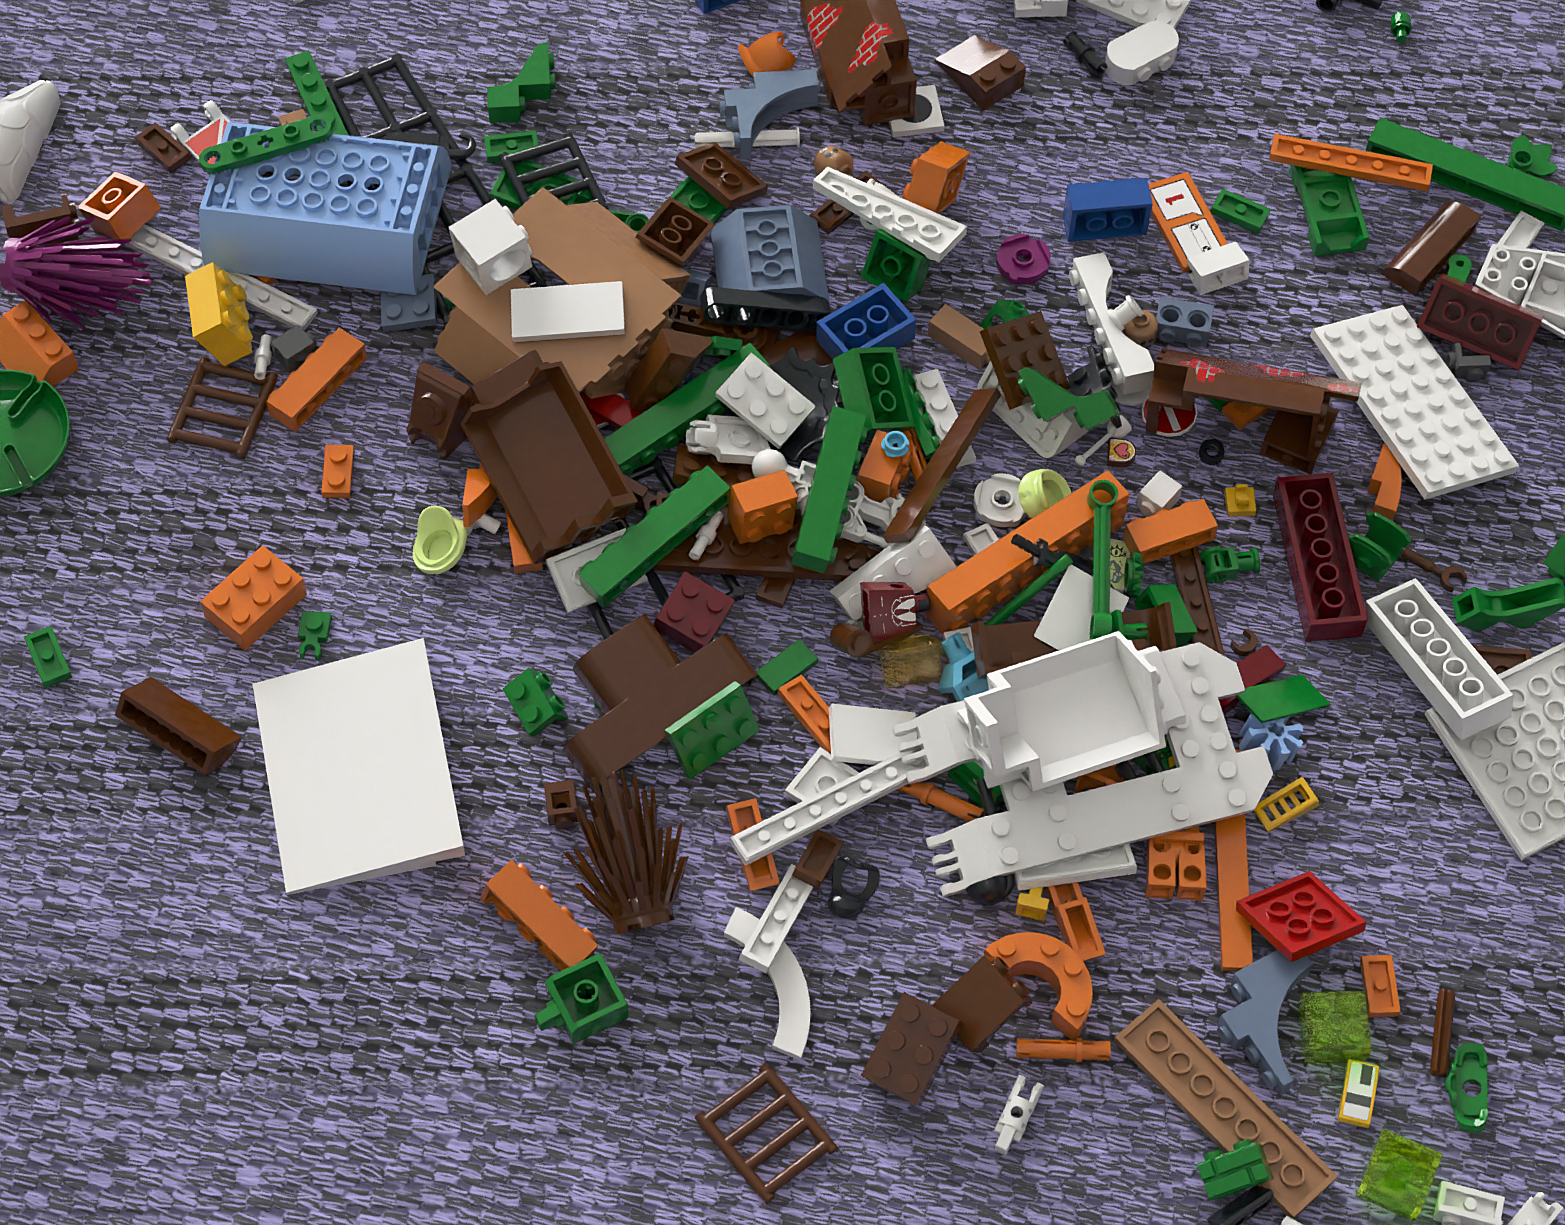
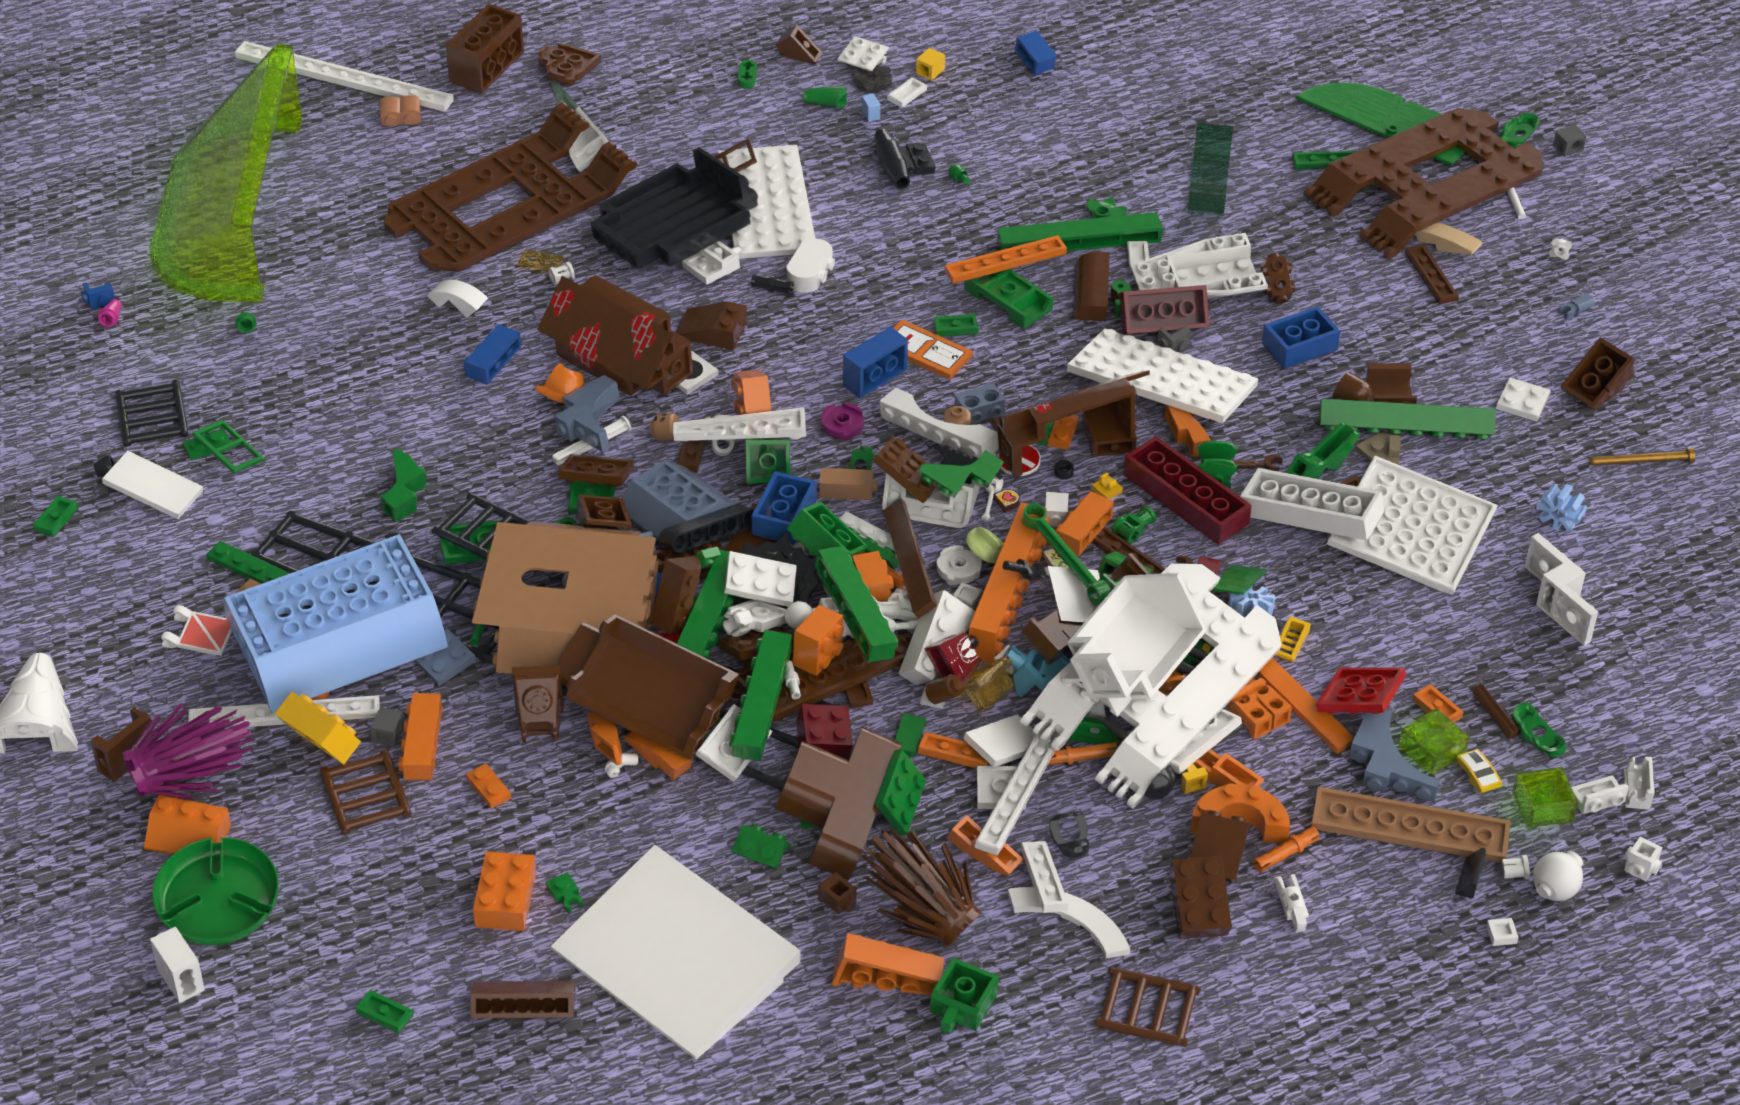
camera: 35 degrees left, 15 degrees down
(119, 207) = (170, 692): orange brick -> none
(163, 147) = (165, 654): reddish brown plate -> none
(250, 148) = (259, 605): green piece -> none
(262, 357) = (368, 744): white bar -> none
(442, 536) = (605, 783): yellowish green piece -> none
(491, 246) = (501, 570): white brick -> none
(509, 143) = (421, 530): green plate -> none
(567, 311) = (585, 587): white tile -> none
(817, 859) = (1035, 830): reddish brown tile -> none
(895, 438) = (874, 555): medium azure plate -> none
(1030, 591) = (1031, 603): green bar -> none
(1125, 312) = (946, 409): white bush -> none
(1133, 575) = (1086, 555): green gear -> none
(1218, 268) = (973, 363): white hinge -> none
(1234, 1170) = (1452, 849): green brick -> none

